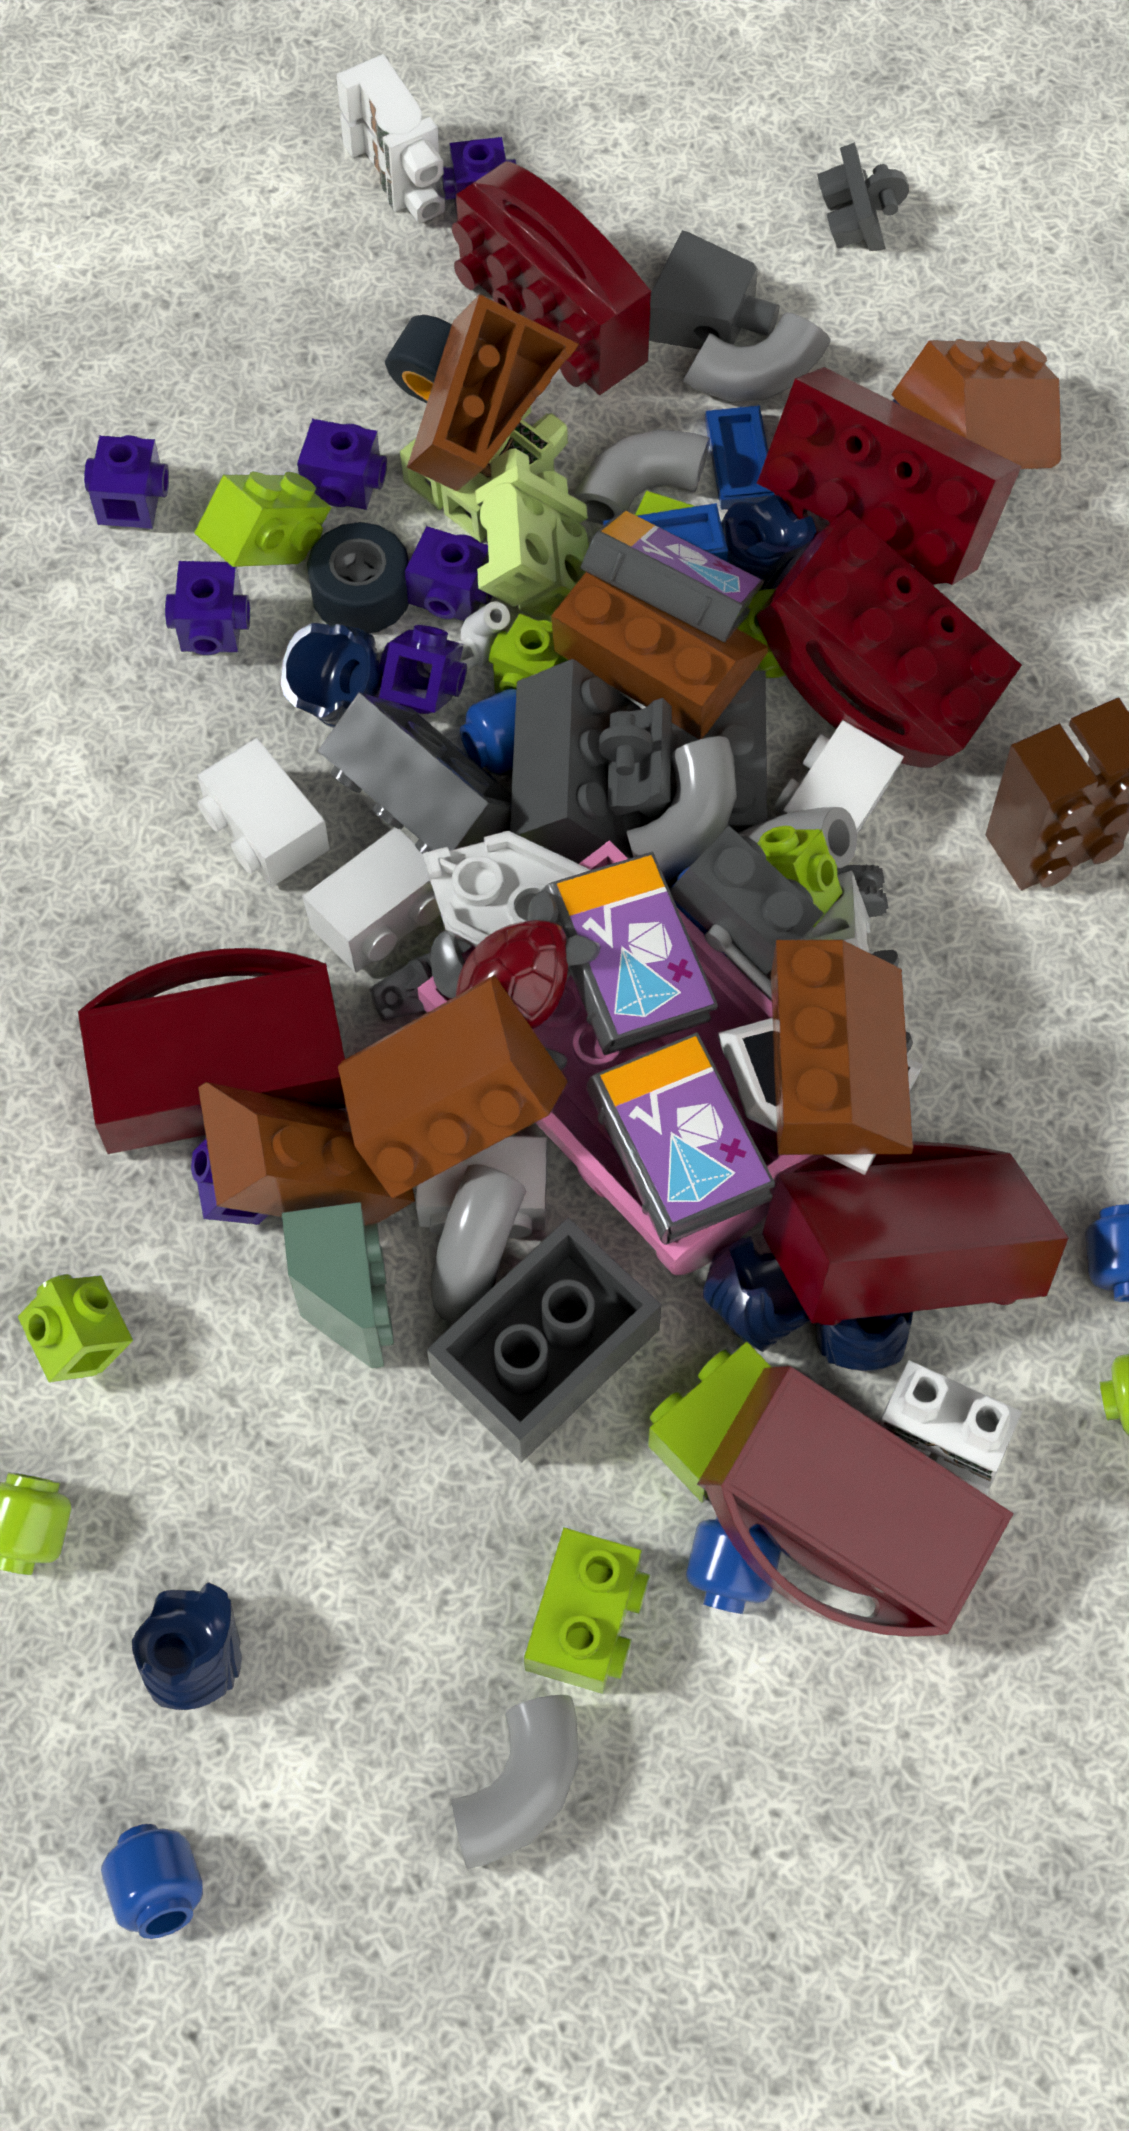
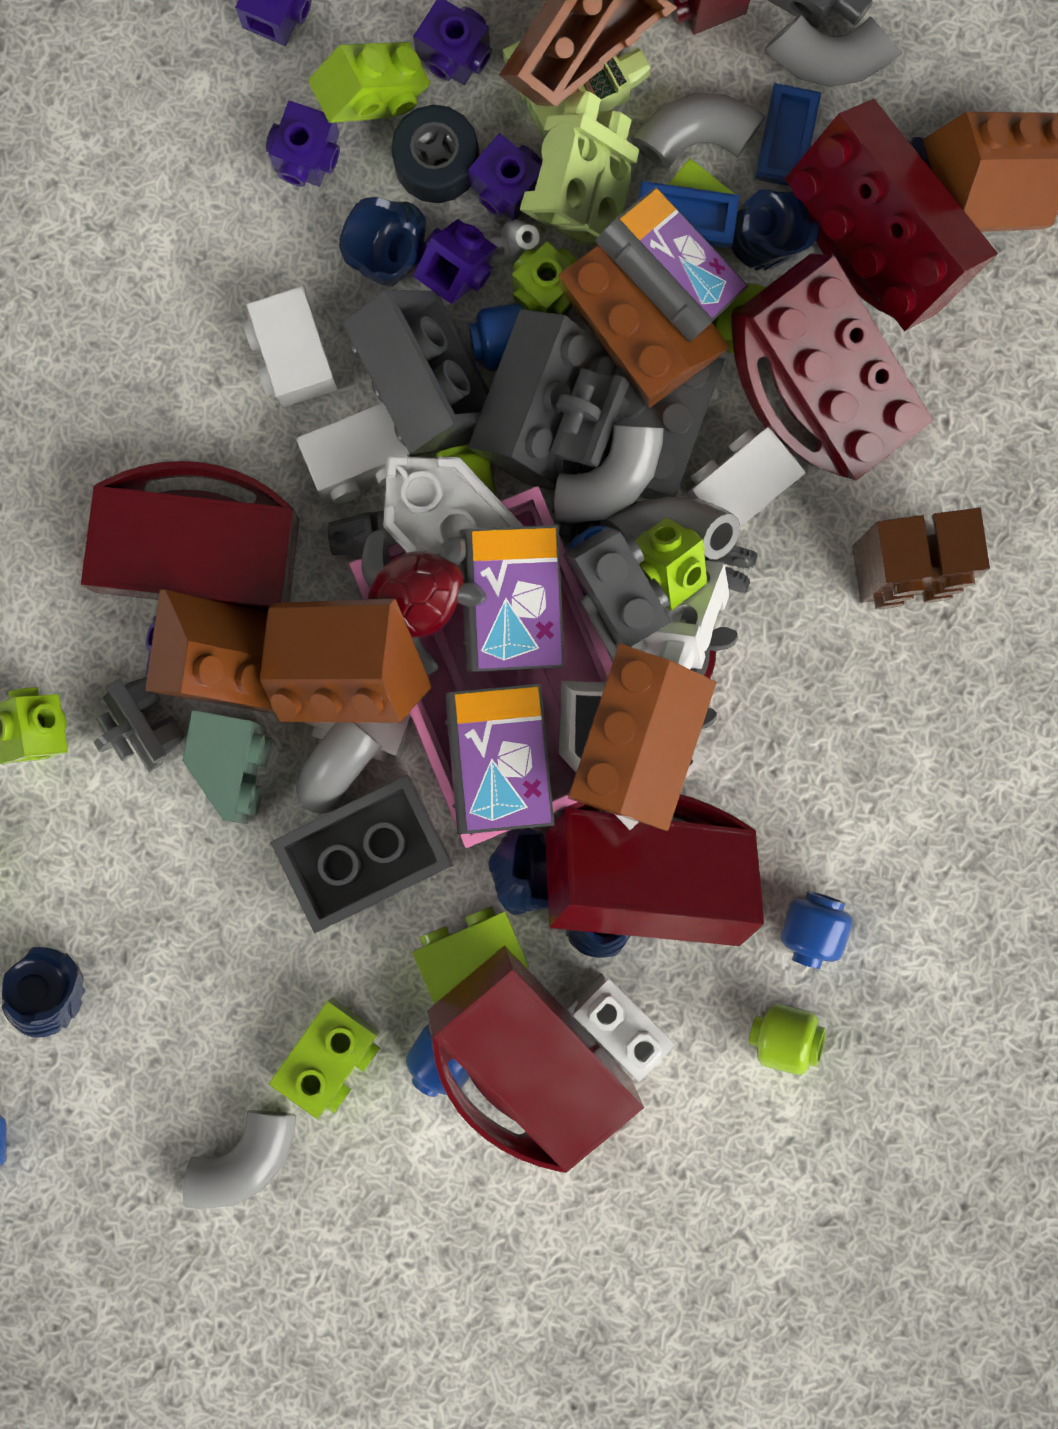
camera: 20 degrees right, 20 degrees up
(205, 1290) = (127, 705): none -> dark grey hips

